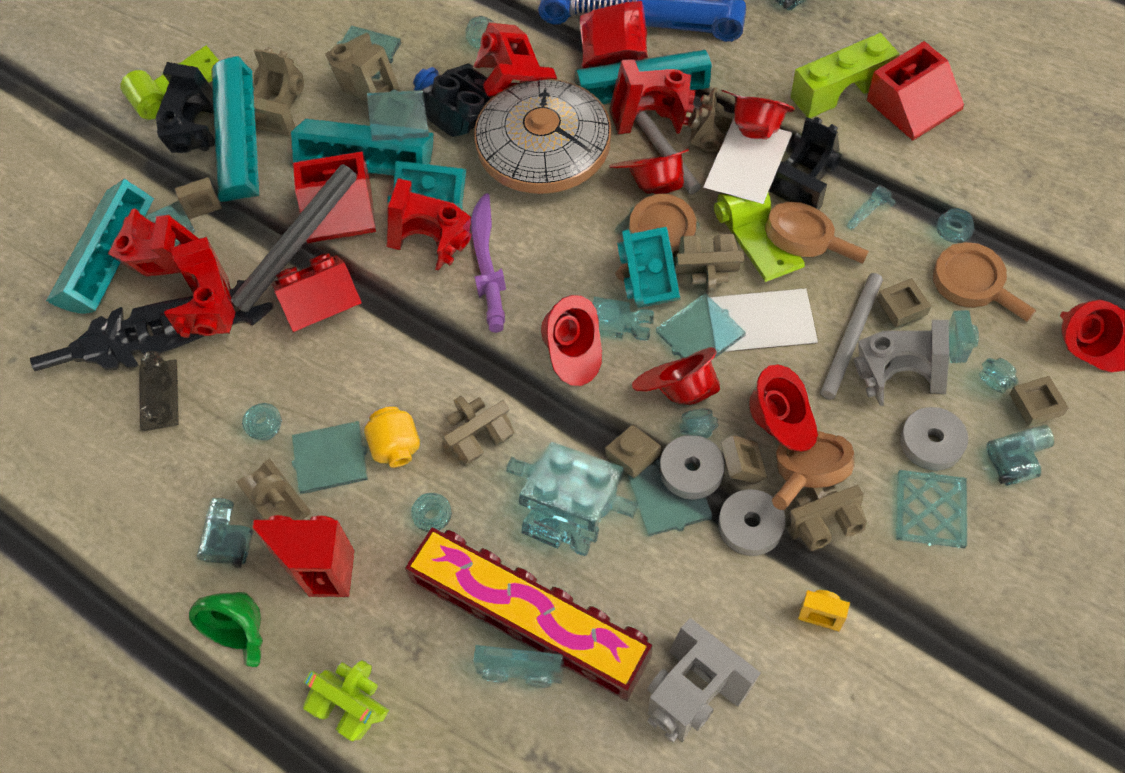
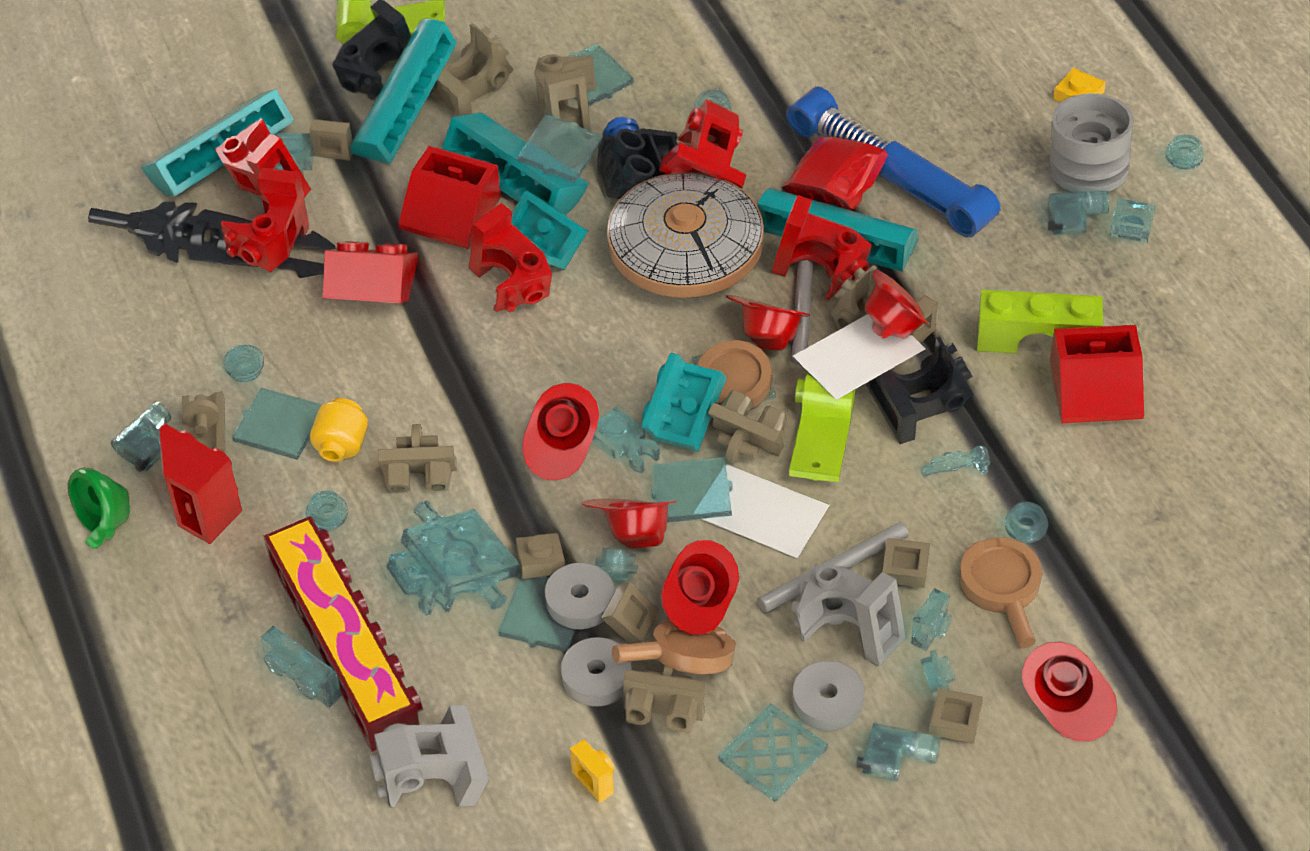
camera: 30 degrees right, 10 degrees down
(158, 392) = (176, 292): clear smoke hinge -> none
(293, 238) = (382, 214): dark grey axle -> none
(331, 690) = (150, 611): lime hips -> none
(489, 281) = (538, 344): medium lavender sword -> none
(807, 232) = (867, 450): medium nougat piece -> none

